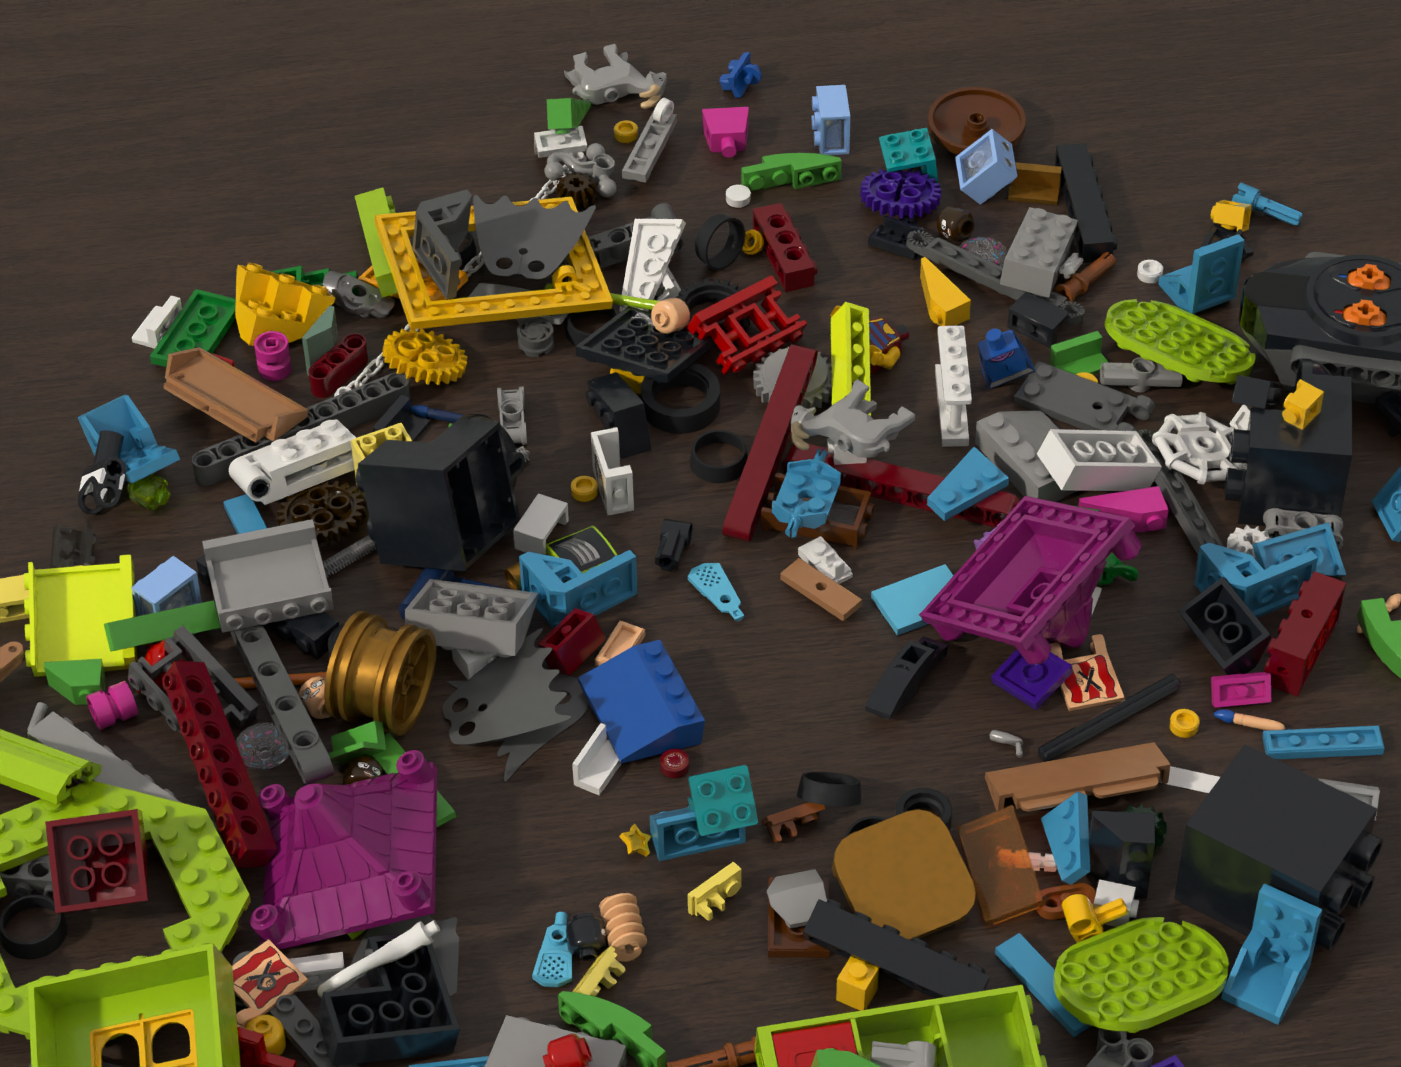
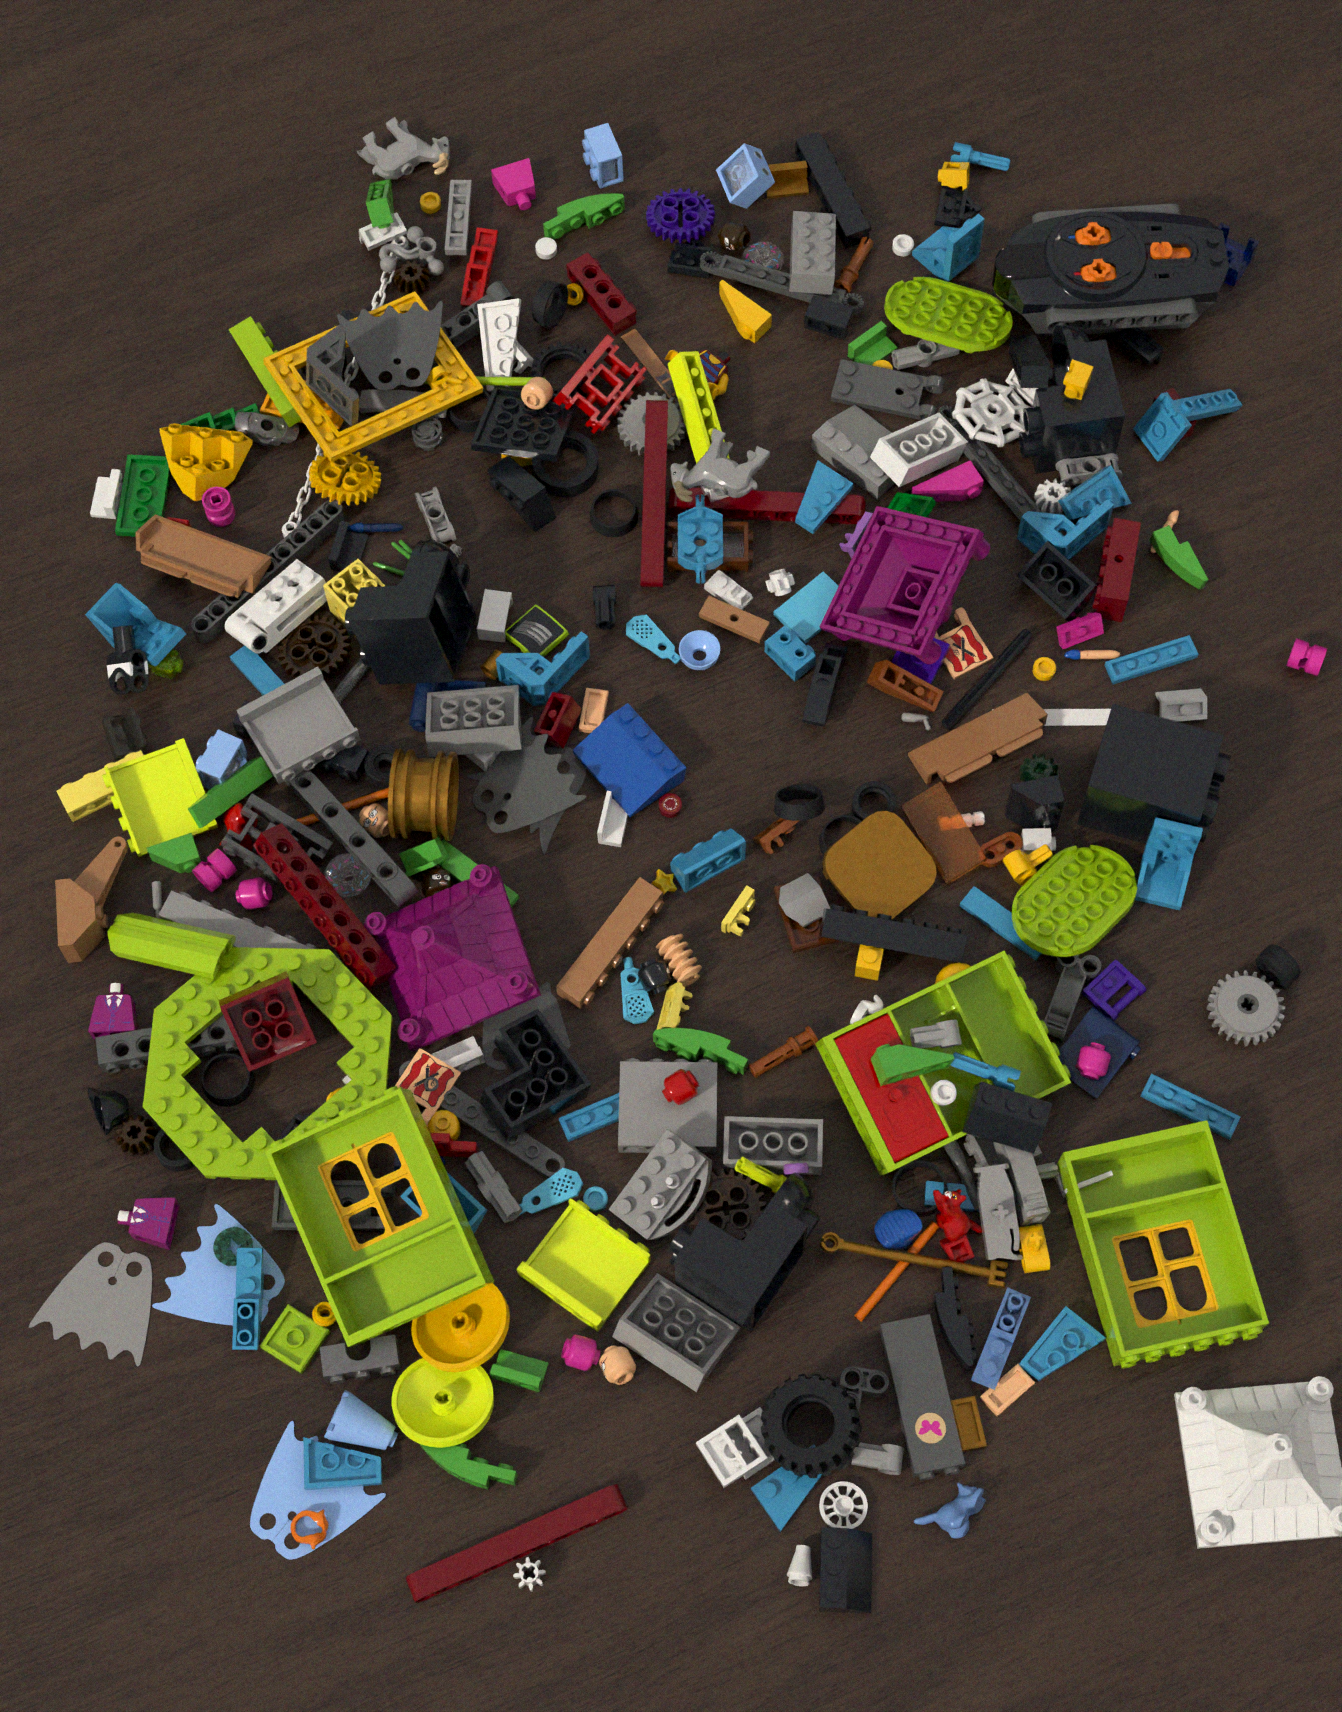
camera: 15 degrees left, 20 degrees up
(147, 739) = (254, 893): none -> dark pink head
(320, 337) = (256, 486): sand green slope -> none
(338, 365) = (274, 492): dark red beam -> none
(398, 948) = (525, 1032): white plant -> none
(544, 889) = (609, 943): none -> medium nougat brick
(584, 488) = (515, 569): yellow tile -> none
(613, 481) = (544, 570): white panel -> none
(660, 190) = (479, 266): none -> red slope
(663, 110) = (461, 181): white tile -> none
(722, 800) = (728, 843): teal bracket -> none
(741, 75) = (511, 120): blue hips -> none
(767, 602) = (699, 641): none -> light blue piece
(816, 321) = (651, 362): none -> medium nougat sticker
(874, 634) = (790, 653): none -> dark azure brick
(888, 562) = (780, 582): none -> white gear
(908, 151) = (676, 173): teal bracket -> none
(953, 386) = (783, 404): white fence -> none
(969, 113) = (720, 125): reddish brown dish -> none
(1003, 358) = (814, 366): blue torso -> none
(1003, 700) = (904, 685): none -> dark orange slope
(1069, 837) = (990, 798): dark azure wing -> none
(1070, 265) = (840, 257): white axle -> none

